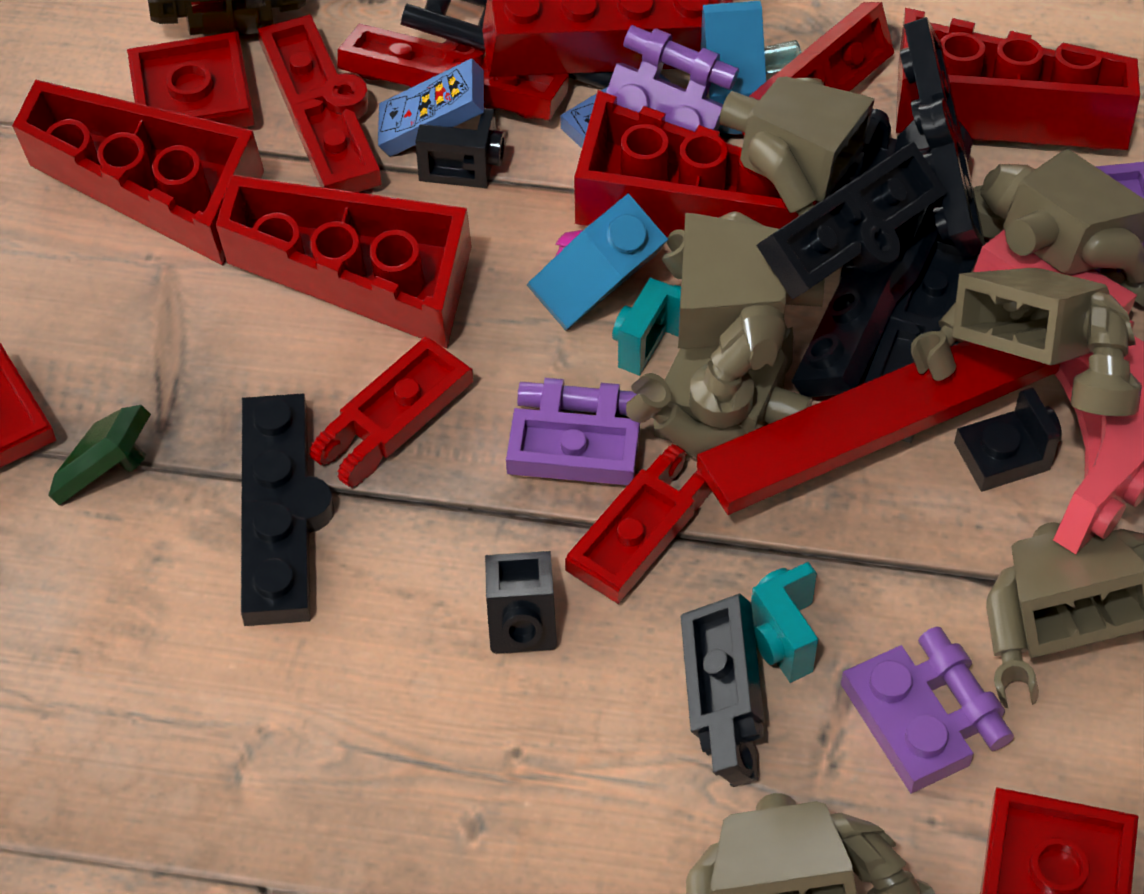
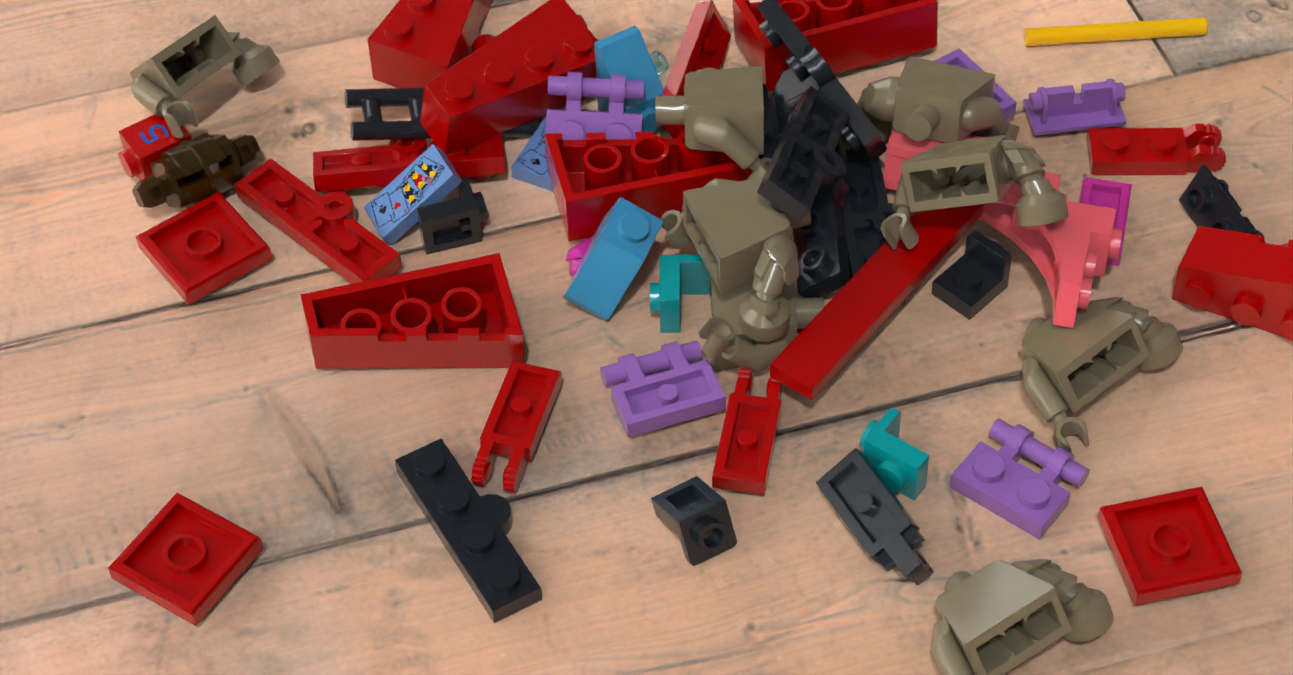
camera: 25 degrees left, 5 degrees down
(100, 449) = (308, 540): dark green piece -> none
(138, 159) = (208, 315): red wedge -> none

